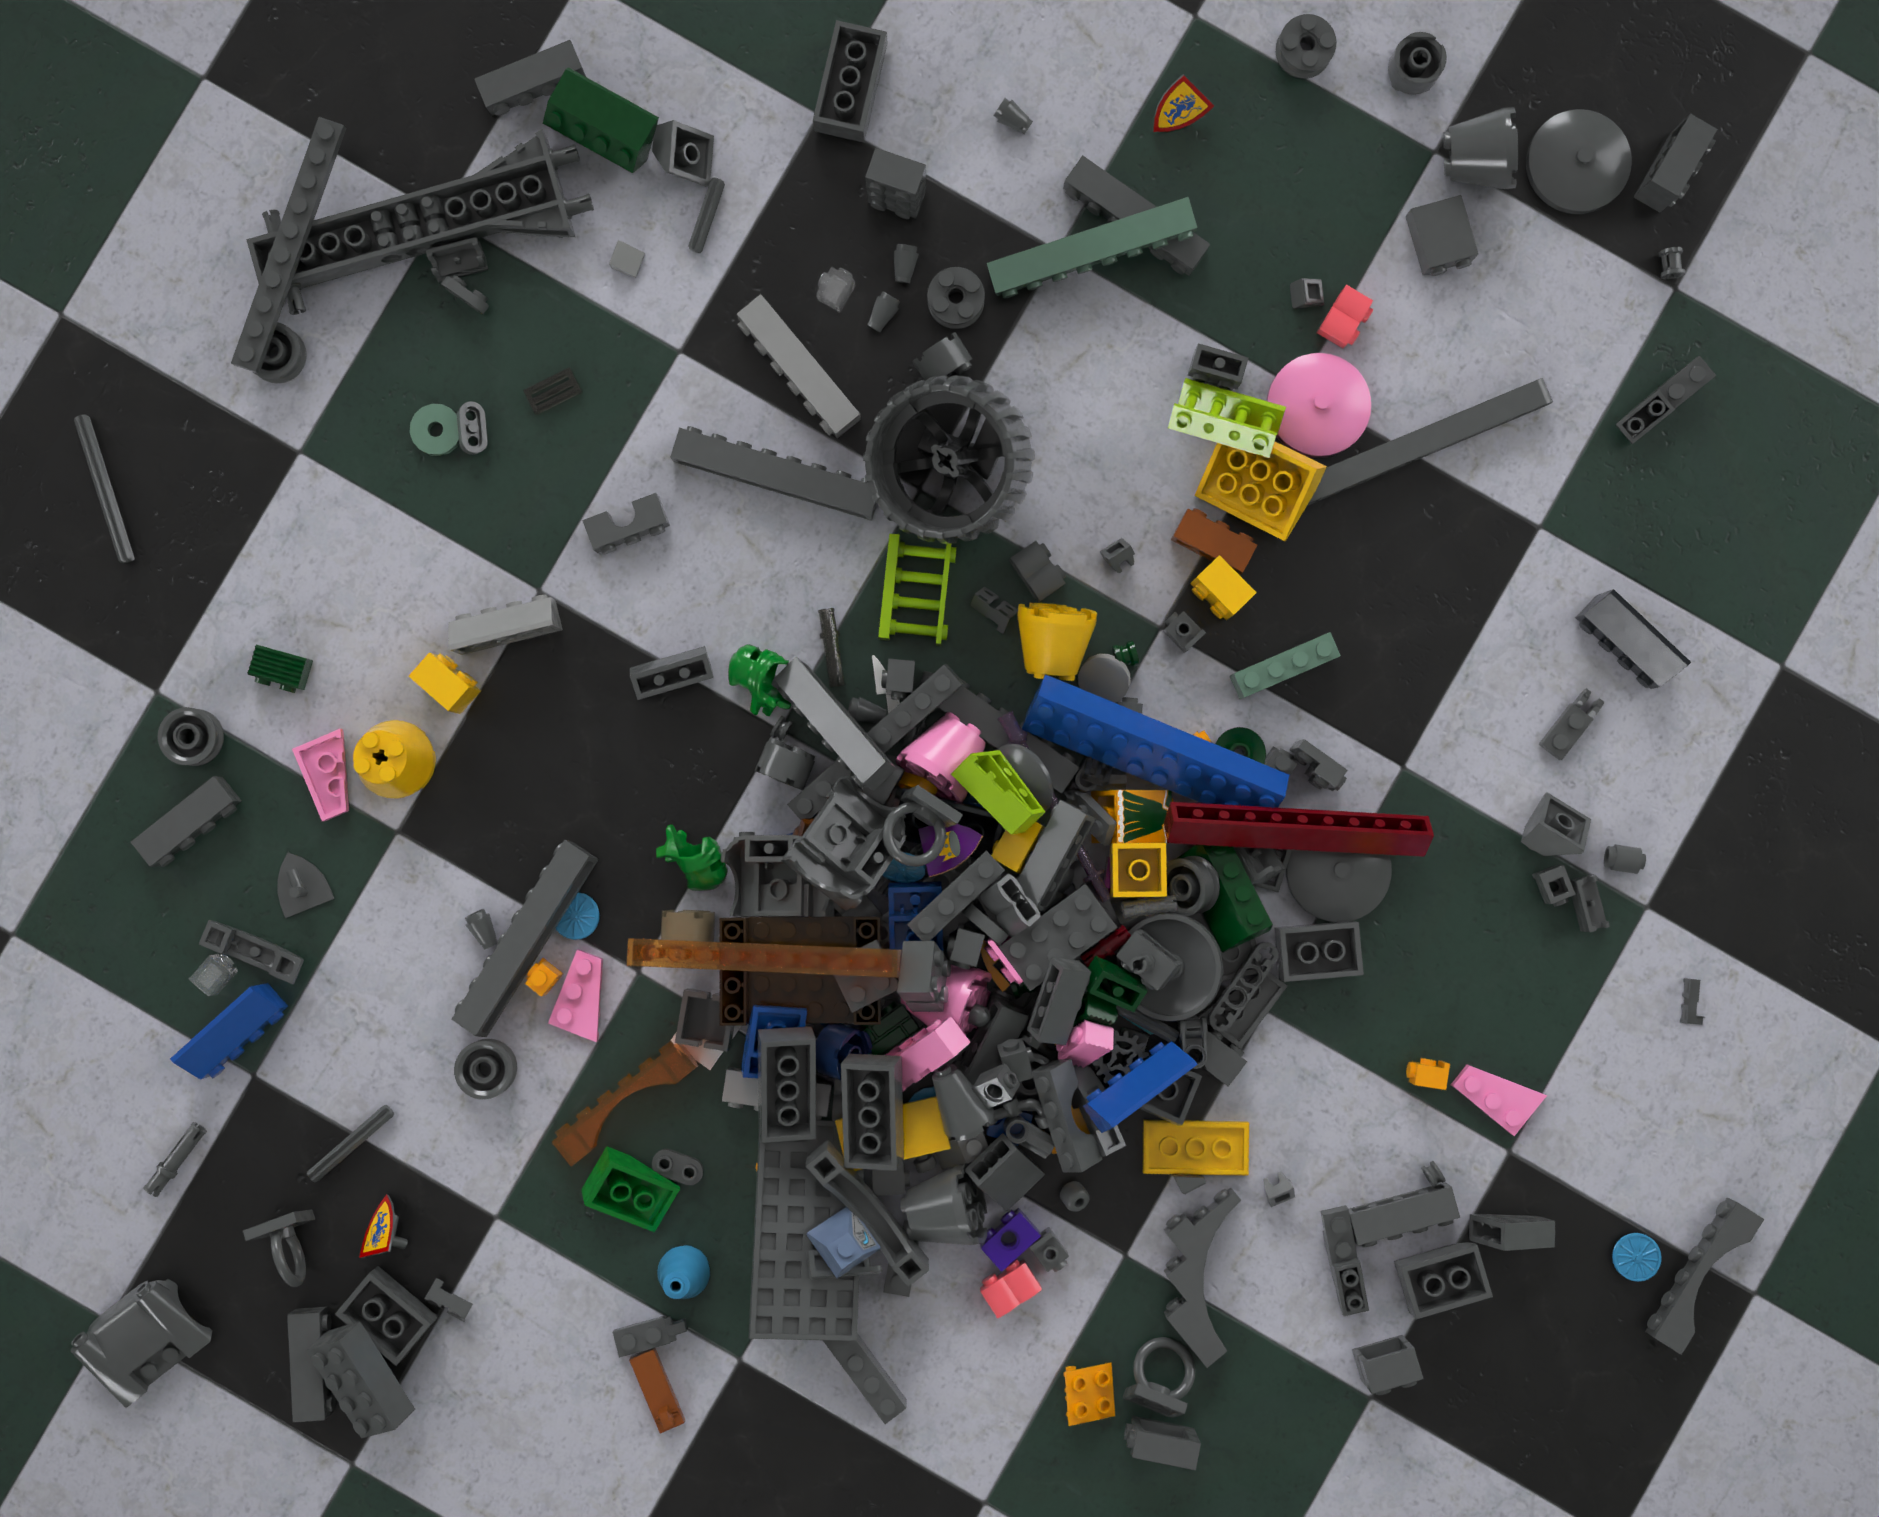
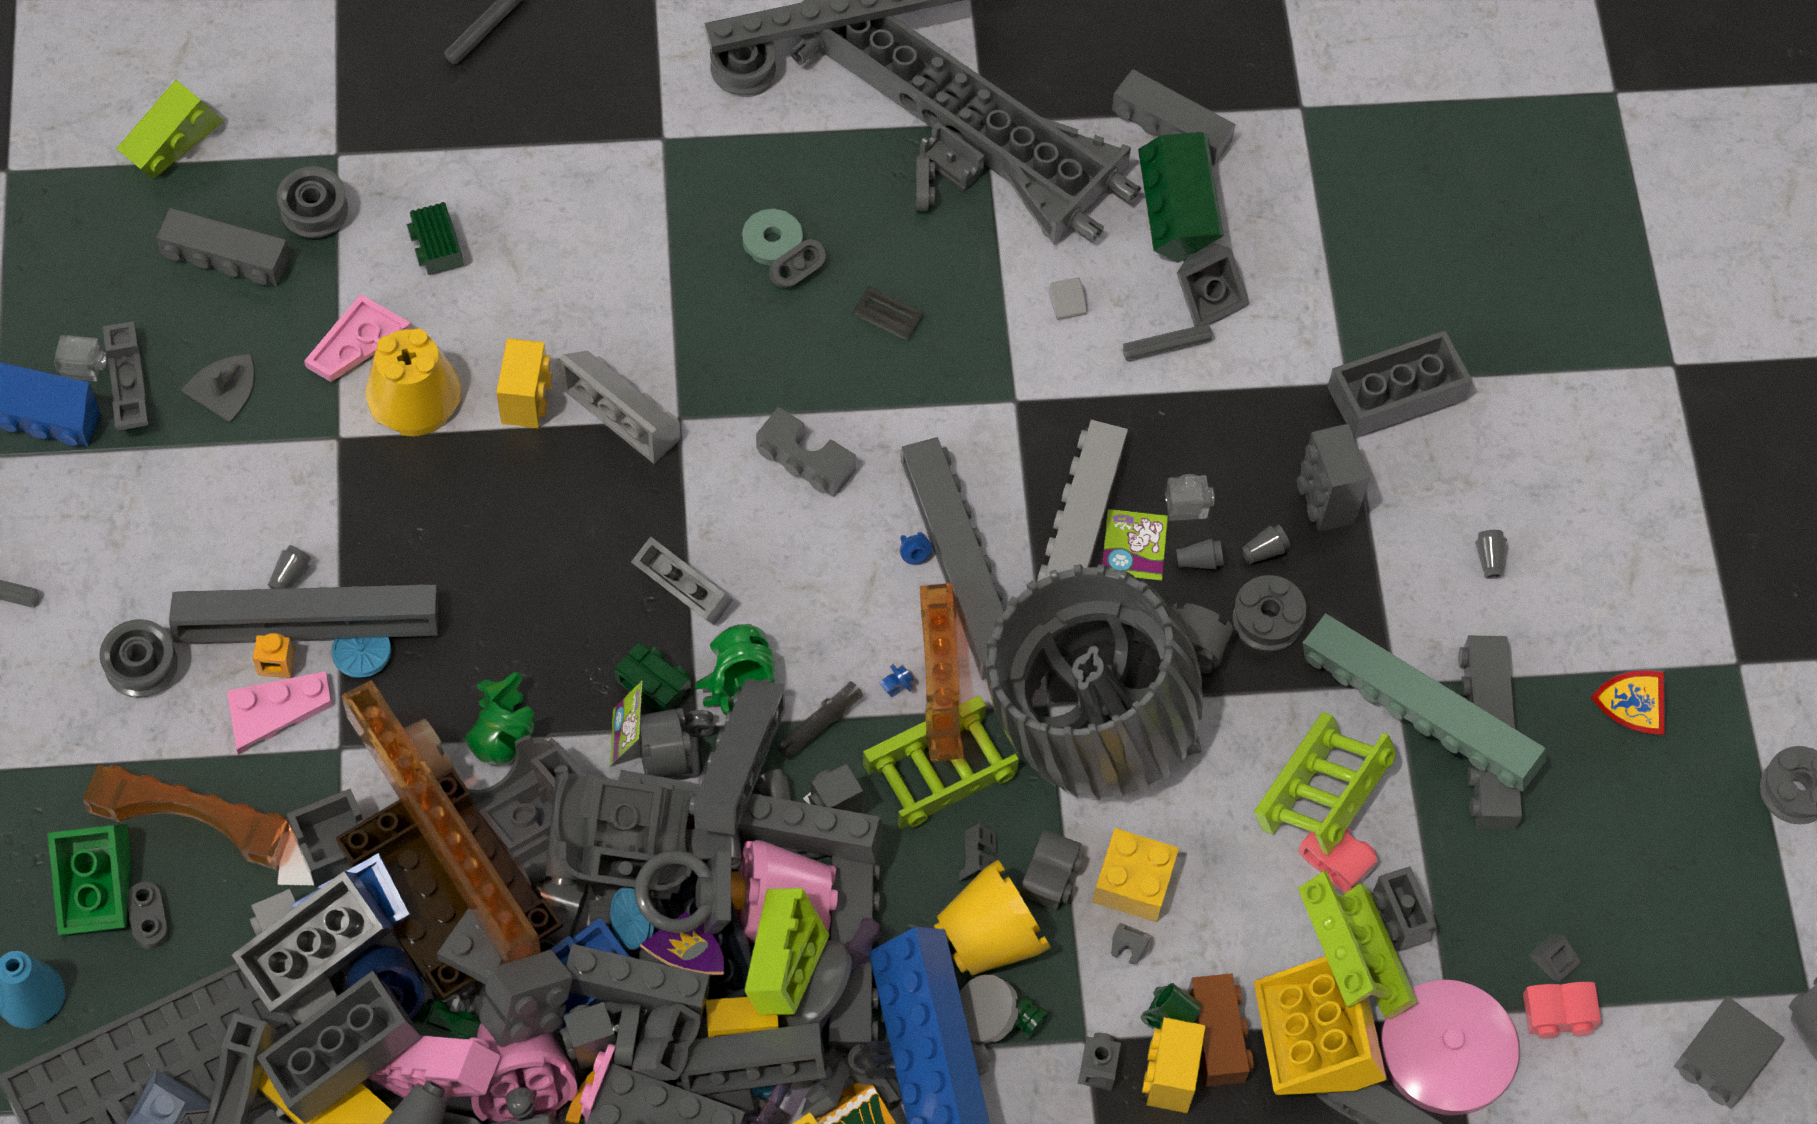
camera: 55 degrees right, 25 degrees down
(58, 802) = (168, 130): none -> lime wedge
(729, 738) = (662, 684): none -> dark green brick
(750, 499) = (915, 548): none -> blue plate
(754, 779) = (626, 723): none -> sticker
(838, 574) = (895, 682): none -> blue plate
(842, 348) = (1135, 543): none -> sticker
(860, 548) = (943, 691): none -> clear orange arch
(1077, 351) = (1309, 760): none -> lime fence
(1078, 520) = (1135, 875): none -> yellow brick
(1151, 379) = (1345, 865): none -> coral brick
(1184, 562) = (1170, 1003): none -> dark green piece

